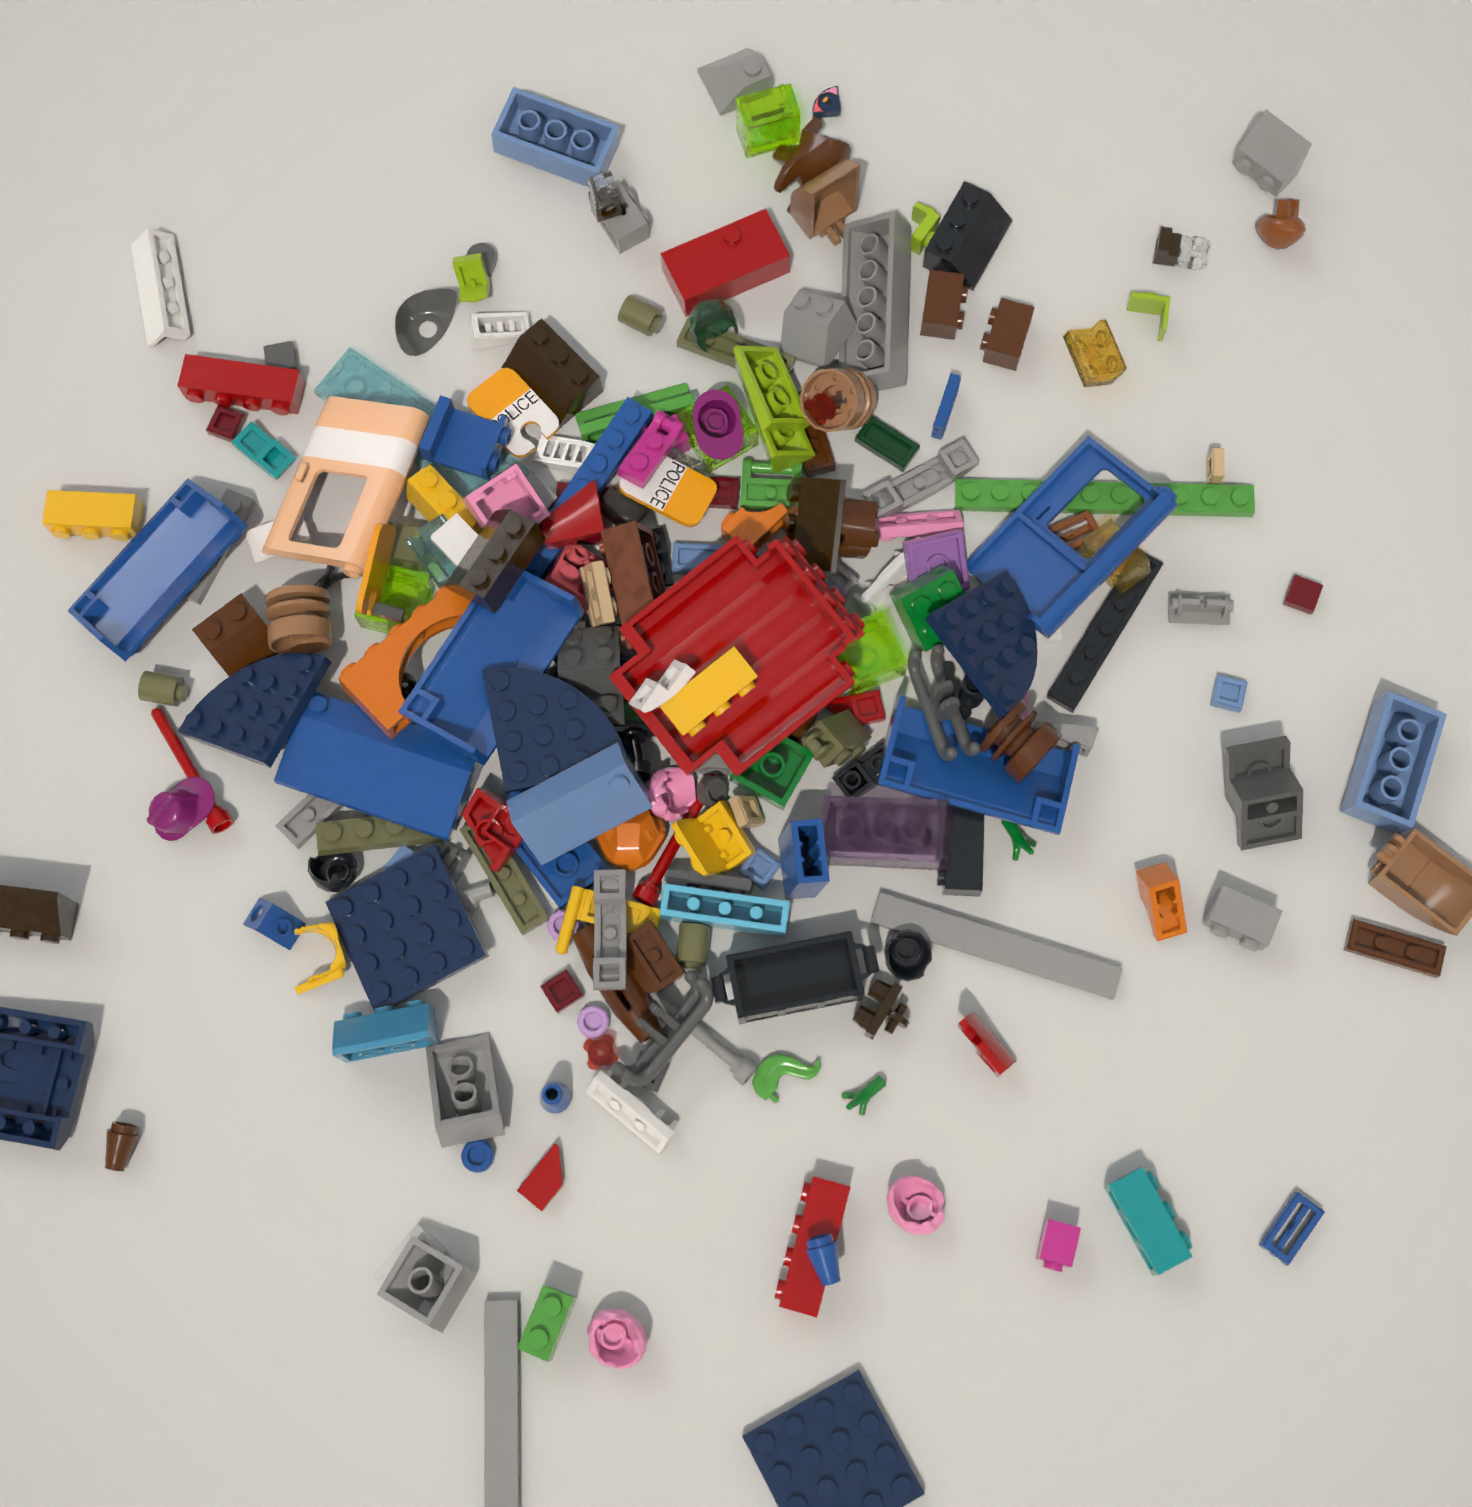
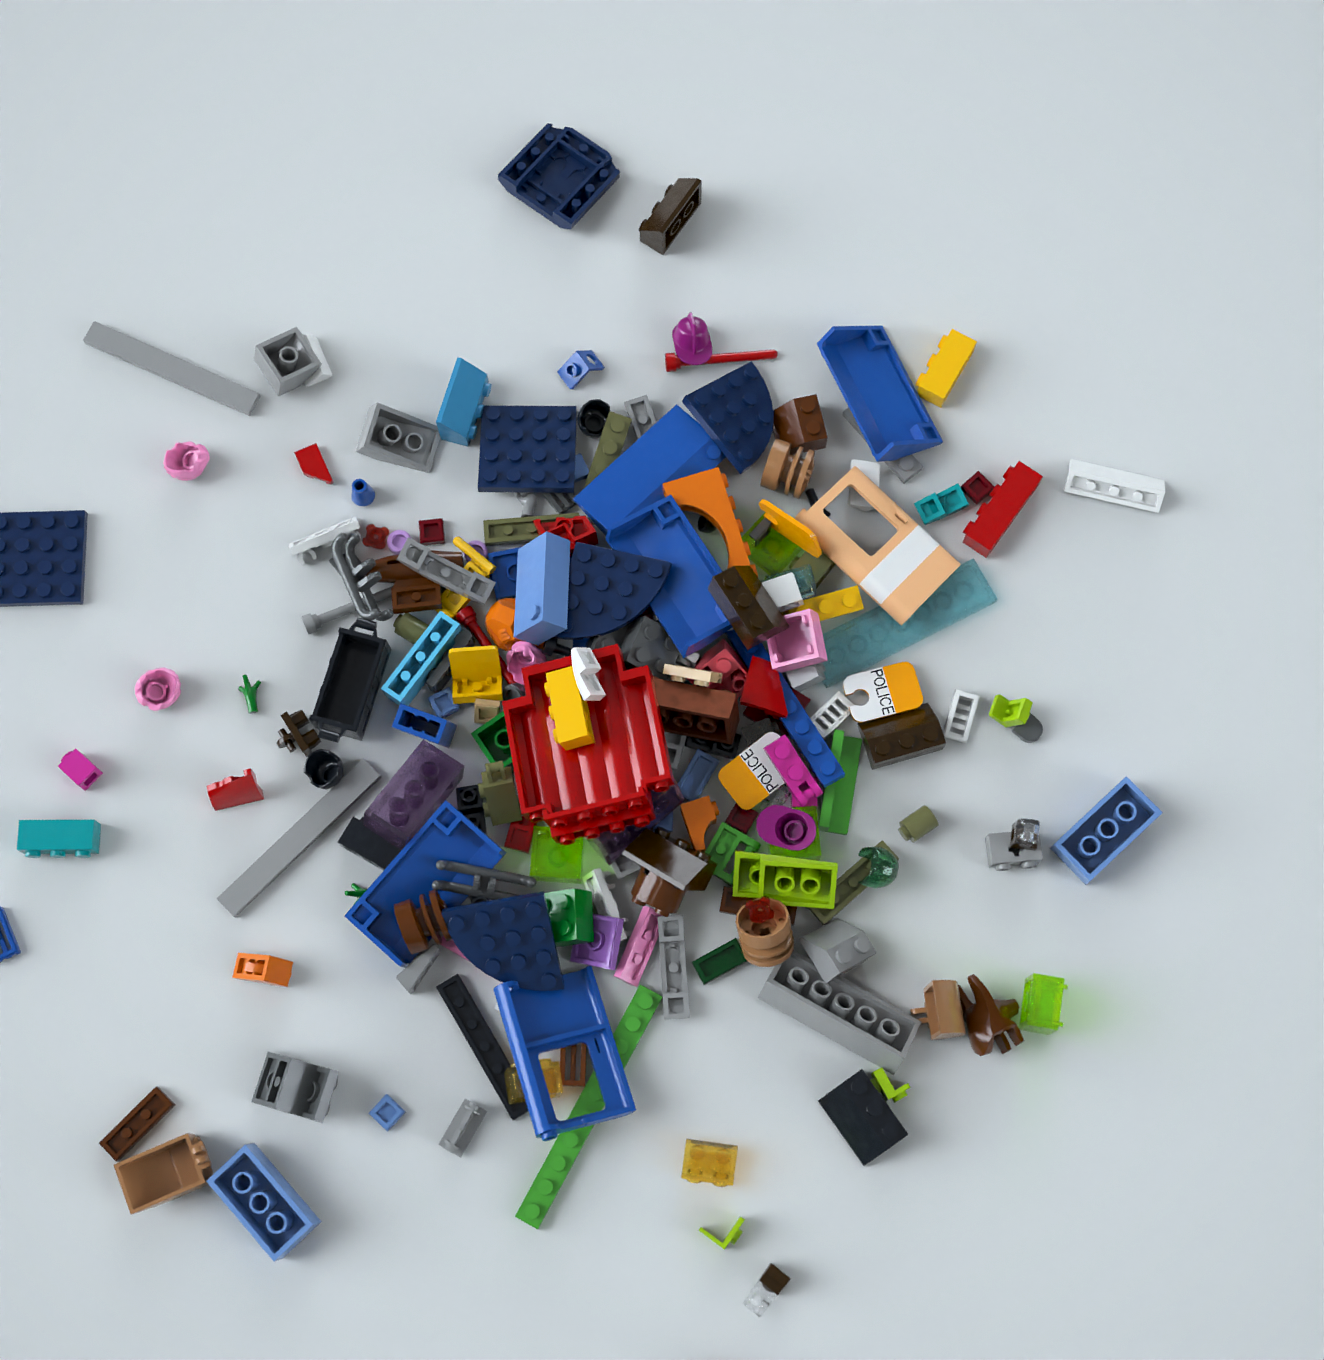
camera: 115 degrees right, 0 degrees up
(119, 1144) = (484, 218): reddish brown cone -> none
(162, 688) = (787, 362): olive brick -> none
(281, 355) = (1013, 547): dark grey tile -> none
(336, 969) = (524, 392): yellow helmet -> none
(427, 305) = (989, 645): dark grey piece -> none
(464, 440) = (873, 644): blue panel -> none
(477, 1156) = (352, 429): blue tile -> none
(547, 1323) = (221, 423): bright green brick -> none
(726, 261) = (932, 910): red brick -> none
(734, 76) = (1100, 1004): light grey slope -> none
(775, 1066) = (302, 647): bright green piece -> none
(821, 1215) = (171, 611): red brick -> none
(824, 1258) = (155, 606): blue cone -> none
(827, 104) = (1042, 1068): dark blue tile -> none
(942, 304) = (813, 1065): reddish brown brick -> none
(946, 406) = (724, 1020): blue tile -> none
(1008, 333) = (762, 1102): reddish brown brick -> none
(1215, 466) = (566, 1205): tan tile -> none
(1242, 918) = (216, 1018): light grey brick -> none
(1303, 594) = (431, 1216): dark red tile -> none

